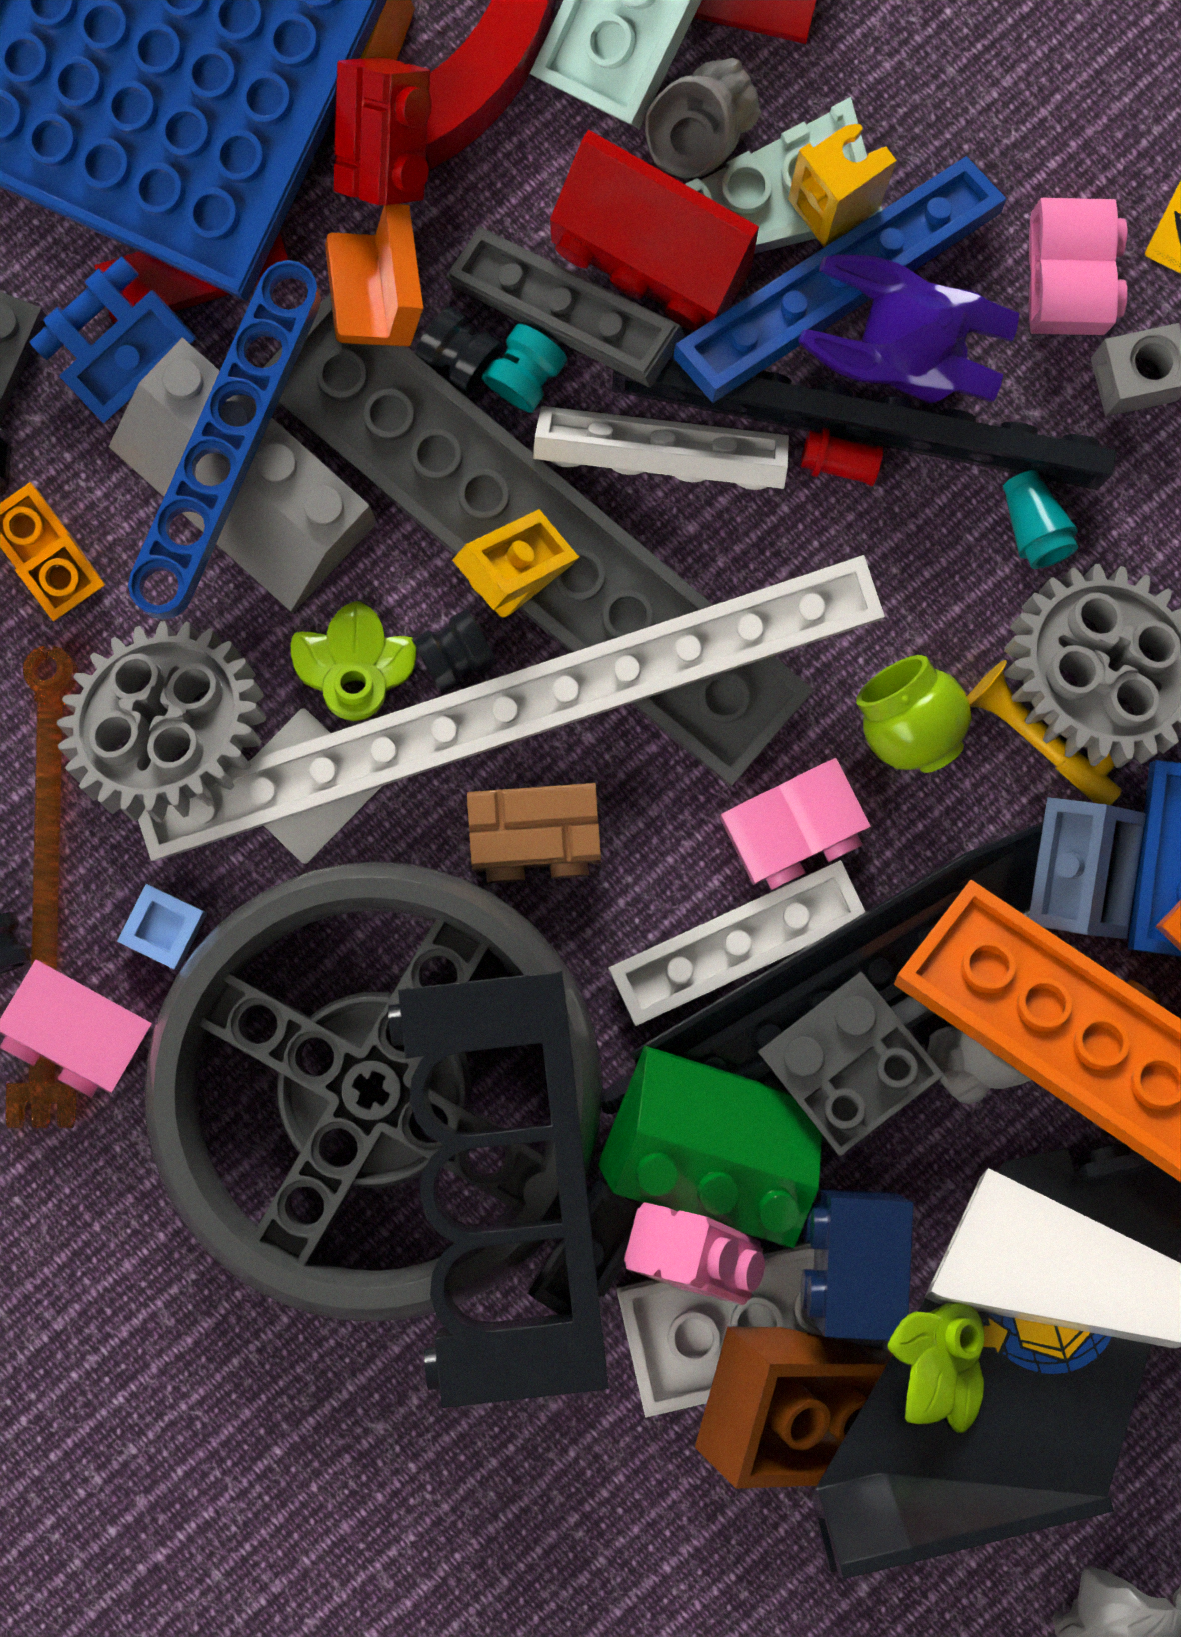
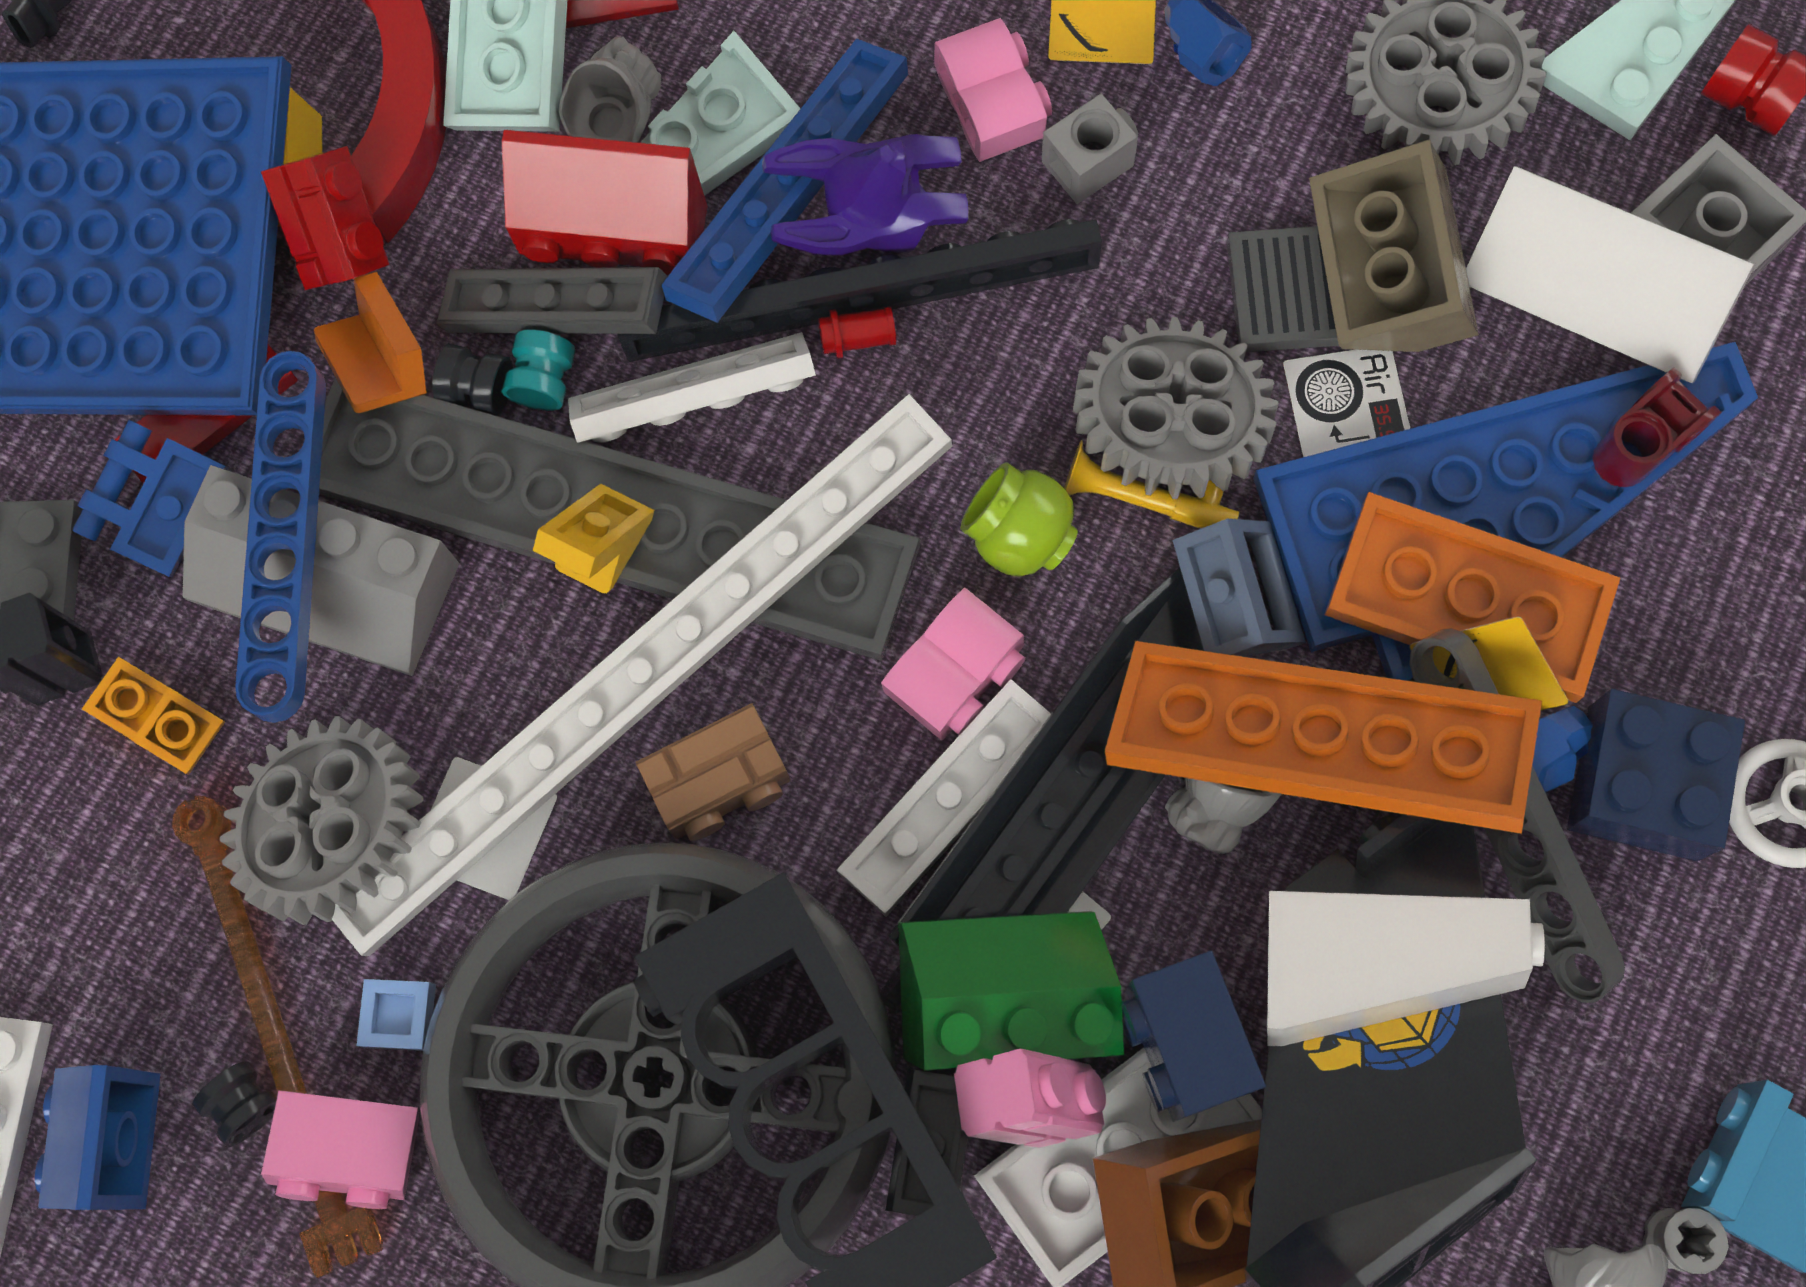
camera: 15 degrees left, 10 degrees down
(353, 652) = (480, 686): lime plate -> none
(454, 651) = (574, 642): black wheel -> none
(835, 192) = (752, 99): yellow hinge -> none
(850, 1064) = (1101, 858): dark grey plate -> none
(944, 1364) = (1312, 1094): lime plate -> none
(1038, 521) = (1058, 313): teal cone -> none

